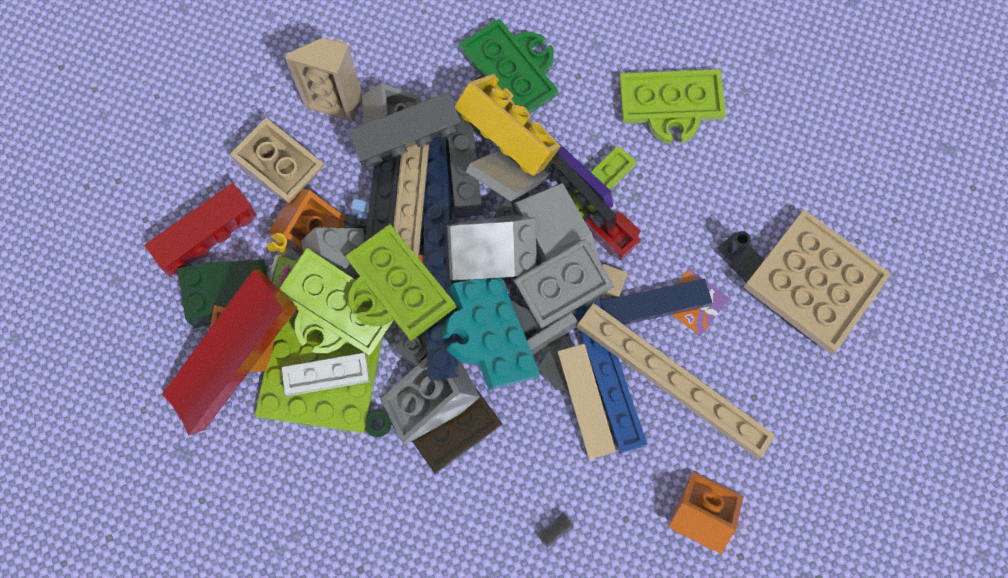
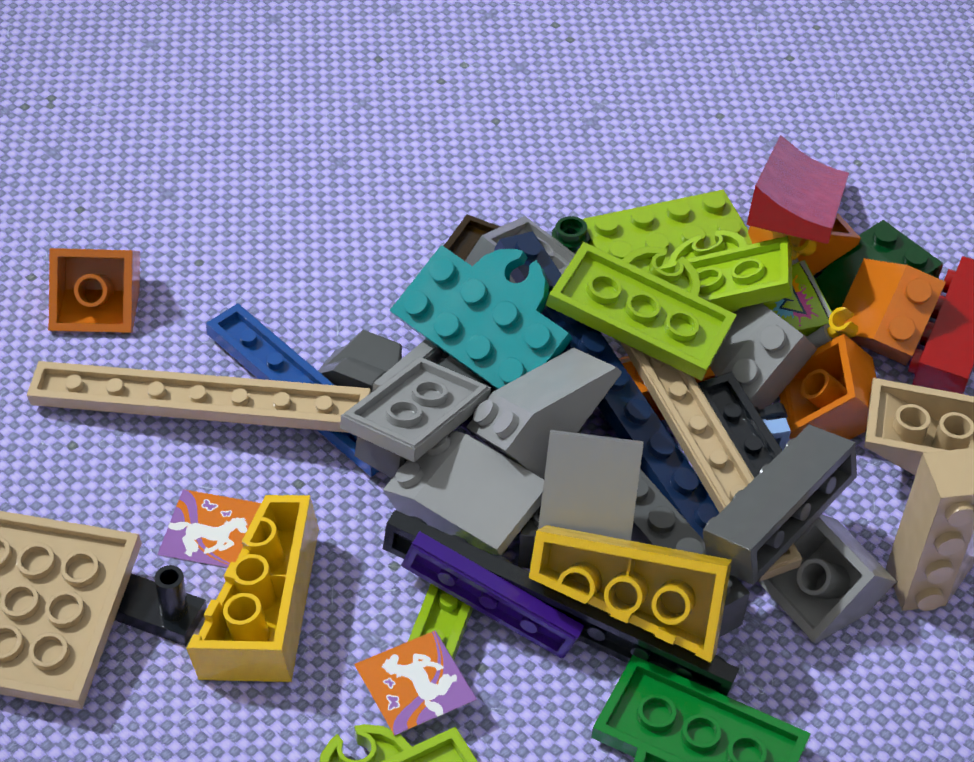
camera: 150 degrees right, 25 degrees down
(235, 250) = (891, 307): none -> orange slope
(325, 374) = (672, 228): white plate -> none
(555, 530) = (288, 208): clear smoke pin -> none
(586, 401) = (315, 336): tan tile -> none
(618, 278) = (353, 500): tan tile -> none
(619, 240) = (364, 564): red slope -> none
(632, 149) = (415, 682): none -> sticker
(659, 302) = (229, 517): dark blue tile -> none
(690, 225) = (261, 607): none -> yellow wedge

